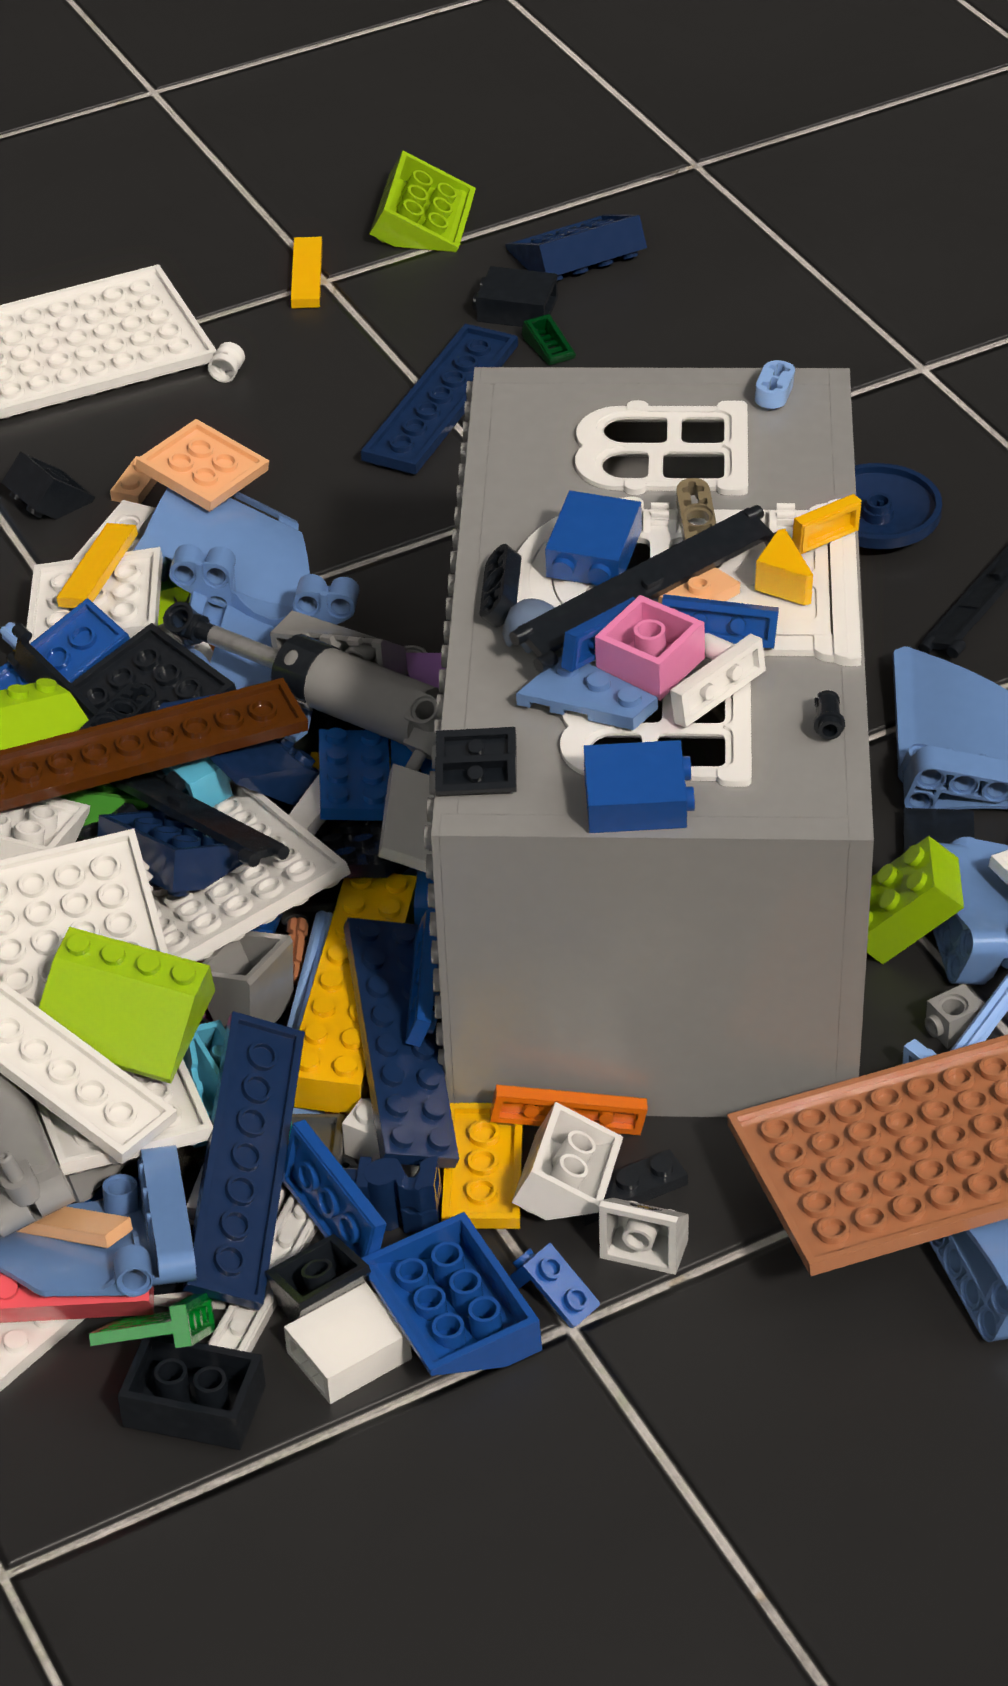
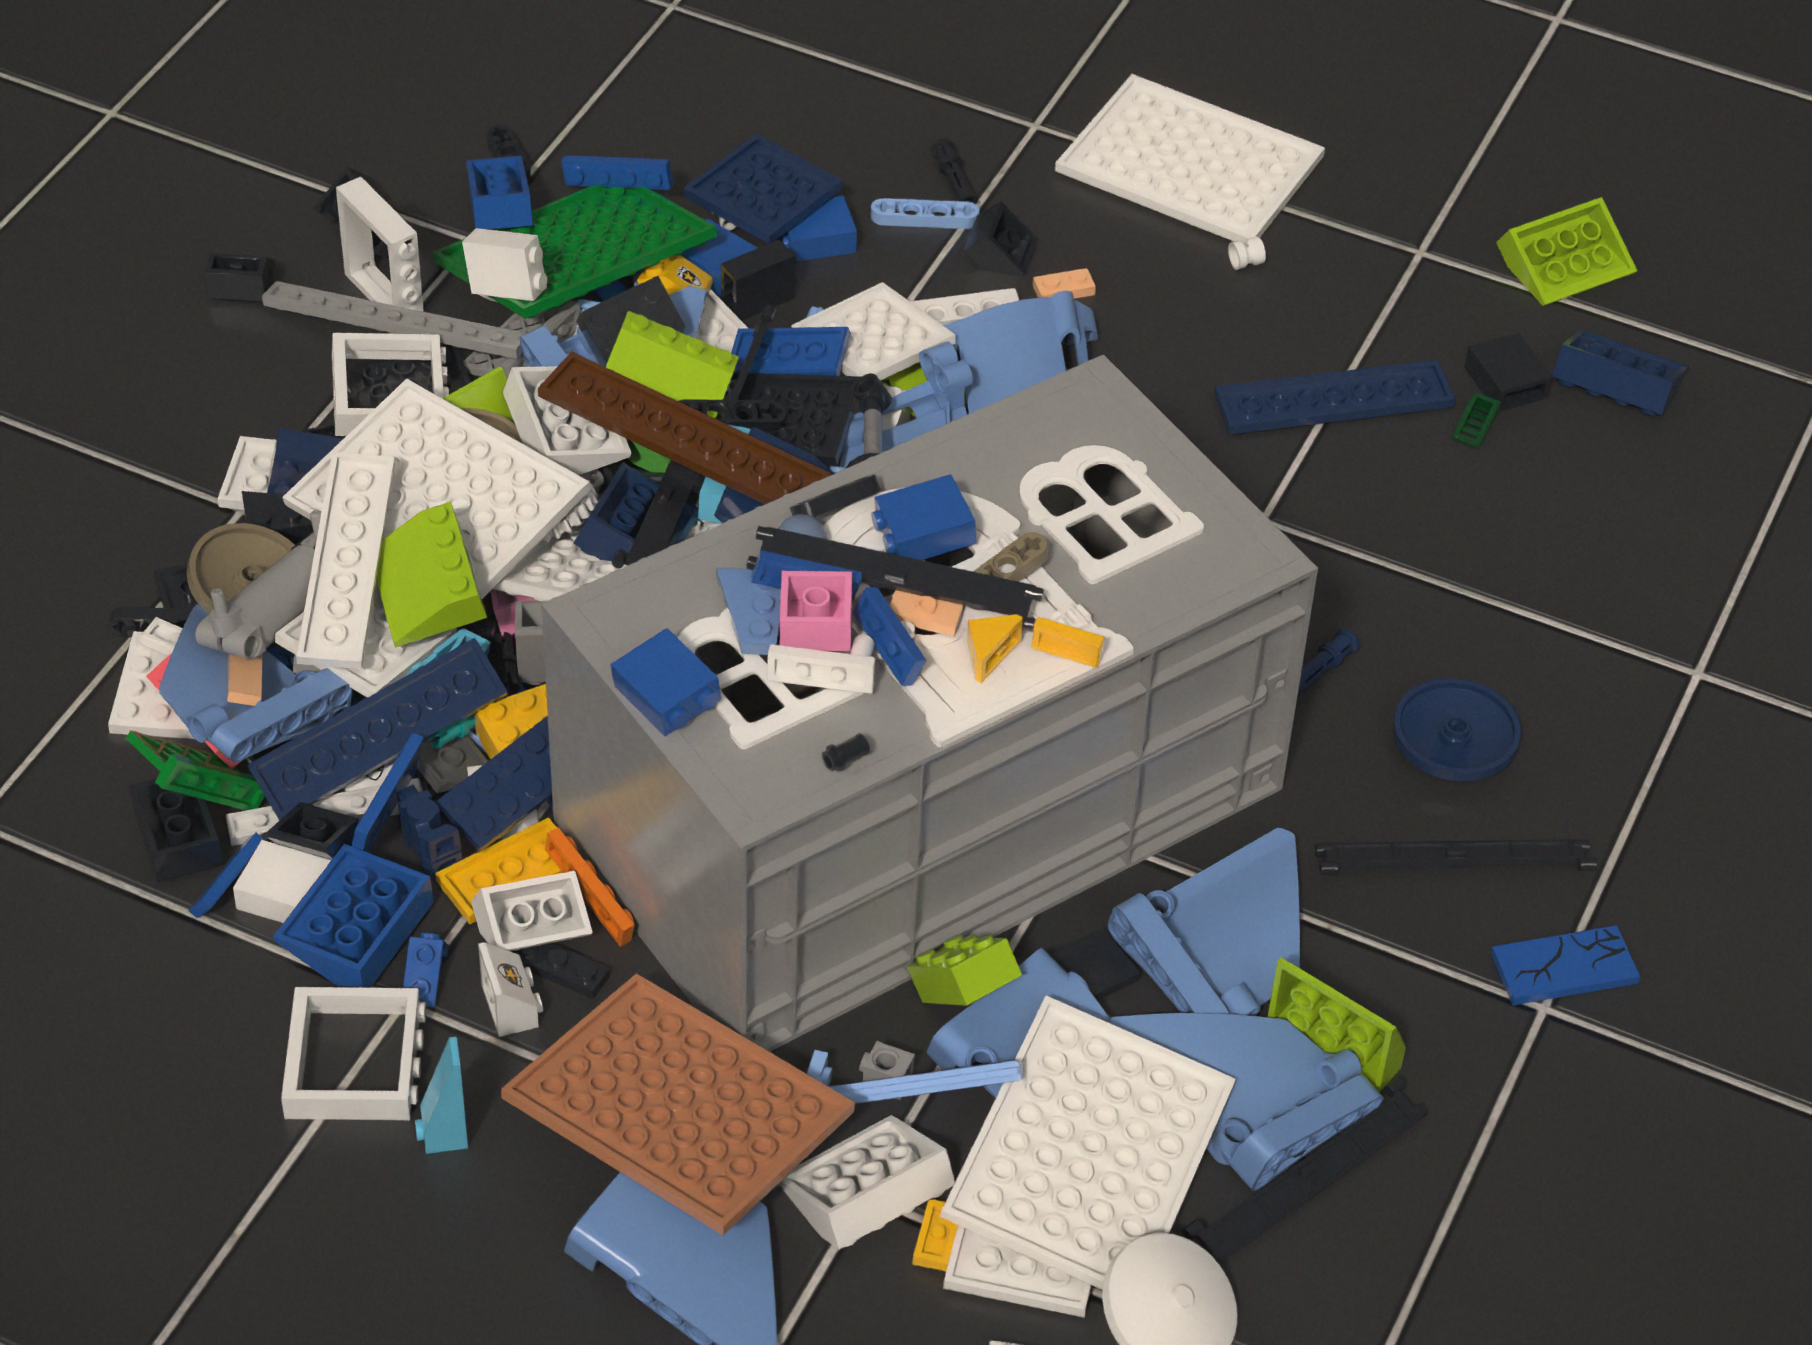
camera: 50 degrees right, 5 degrees up
(97, 564) = (902, 313): yellow tile -> none
(202, 464) = (1062, 302): light nougat plate -> none
(292, 1385) = (226, 876): none -> blue tile
(306, 272) = (1415, 235): yellow tile -> none
(476, 761) = (630, 586): black slope -> none
(585, 1436) = (352, 1104): none -> white window
(761, 1321) = (443, 1106): none -> medium azure wedge
(774, 384) = (1239, 531): light blue beam -> none

